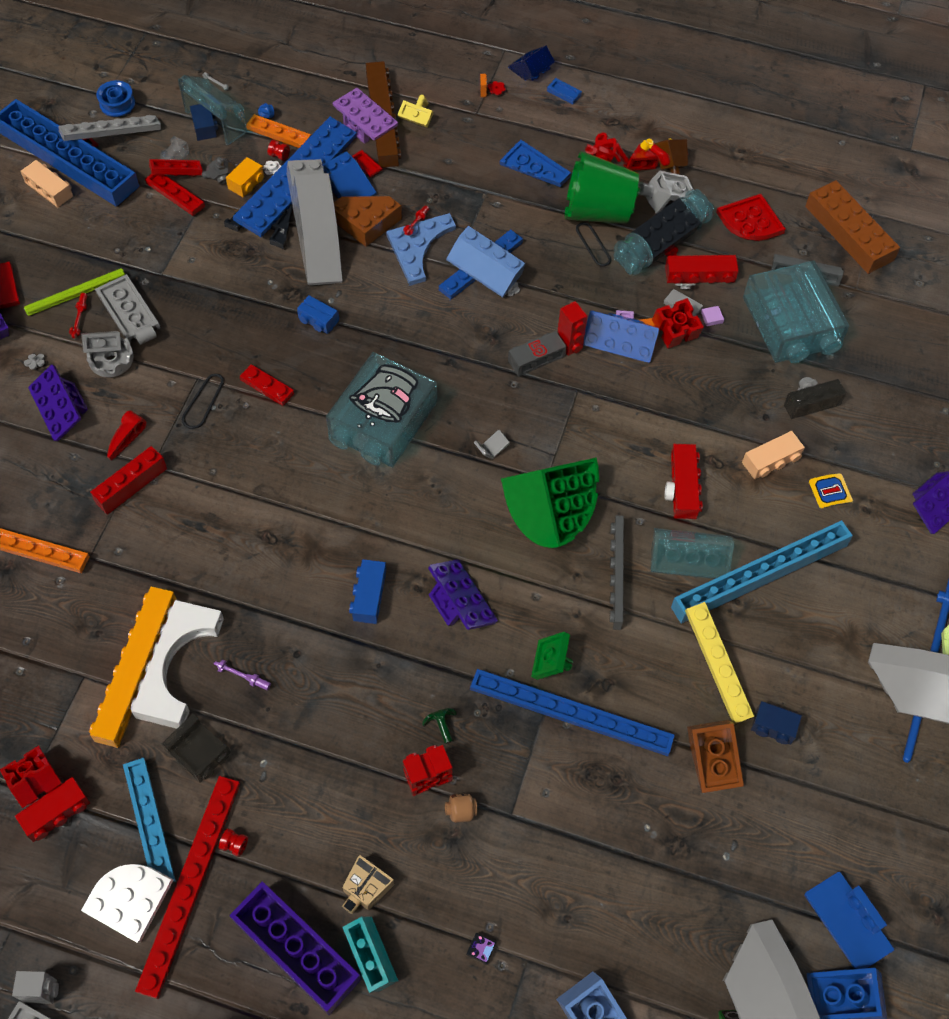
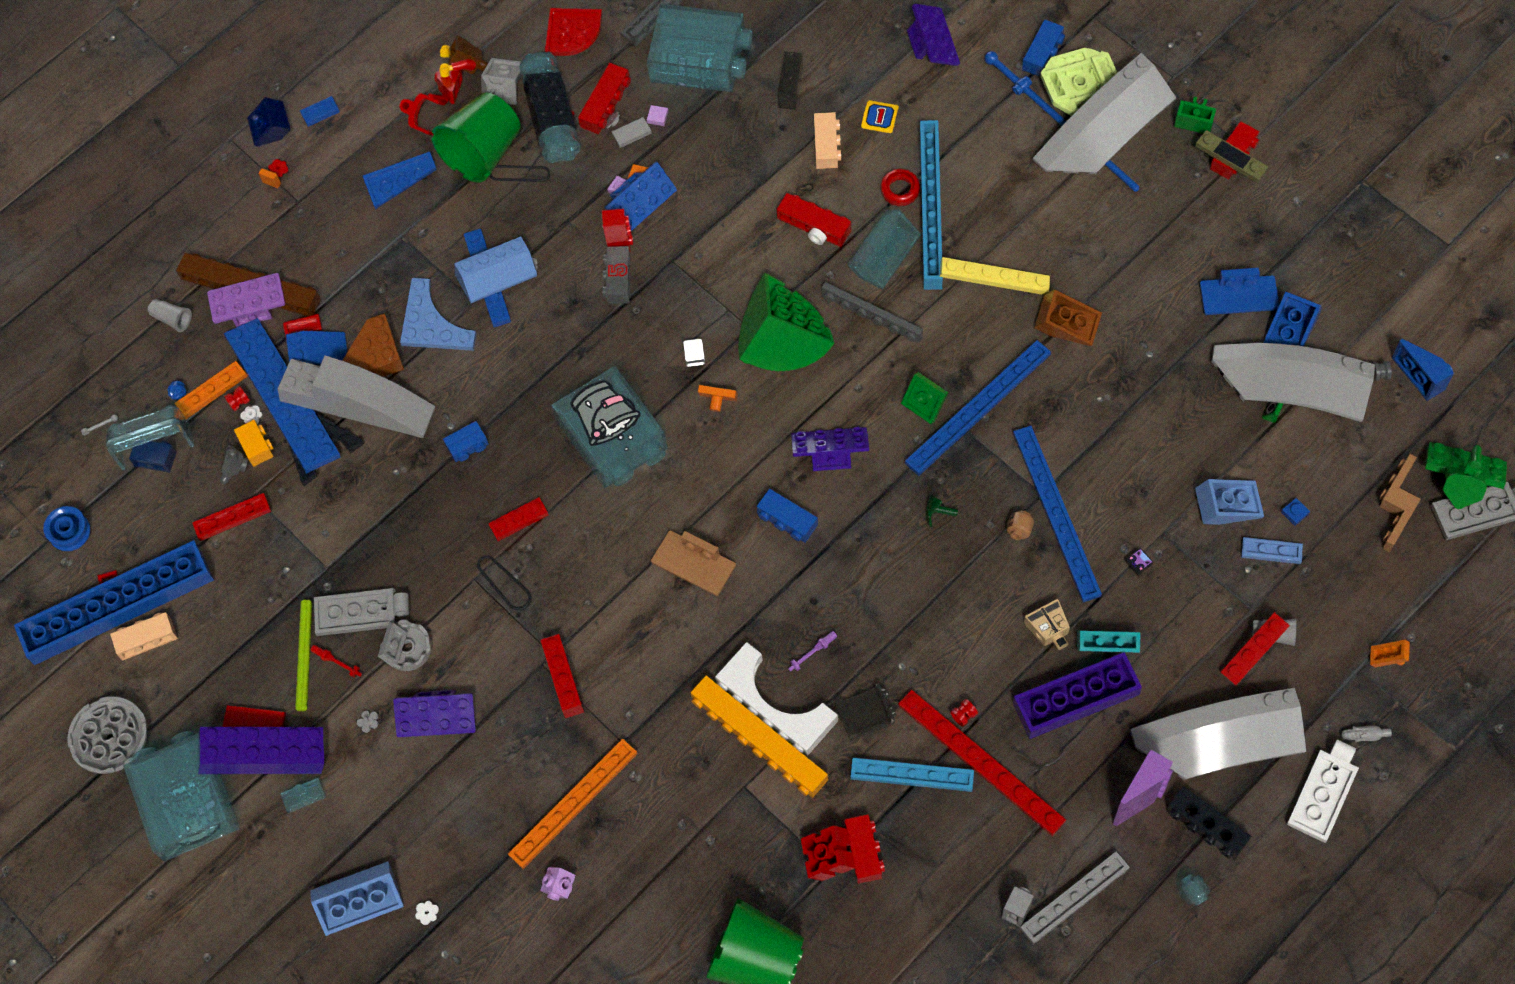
camera: 55 degrees left, 5 degrees up
(109, 127) = (111, 547): light grey plate -> none
(127, 432) = (503, 663): red piece -> none
(128, 899) = (973, 812): white plate -> none
(175, 167) = (202, 503): red plate -> none
(176, 151) = (180, 500): clear leg -> none
(286, 536) = (694, 561): none -> medium nougat bracket
(328, 79) = (170, 314): none -> light grey plant
(416, 113) = (267, 253): light yellow plate -> none
(420, 215) = (399, 304): red piece -> none
(427, 769) = (977, 534): red brick -> none
(460, 481) = (717, 396): none -> orange tile
(491, 841) = (1057, 514): none -> blue plate
(601, 152) = (425, 116): red plate -> none
(677, 323) = (654, 145): red brick -> none
(767, 525) = (900, 200): none -> red wheel
(776, 723) = (1063, 263): dark blue brick -> none
(807, 382) = (772, 79): light grey plate -> none

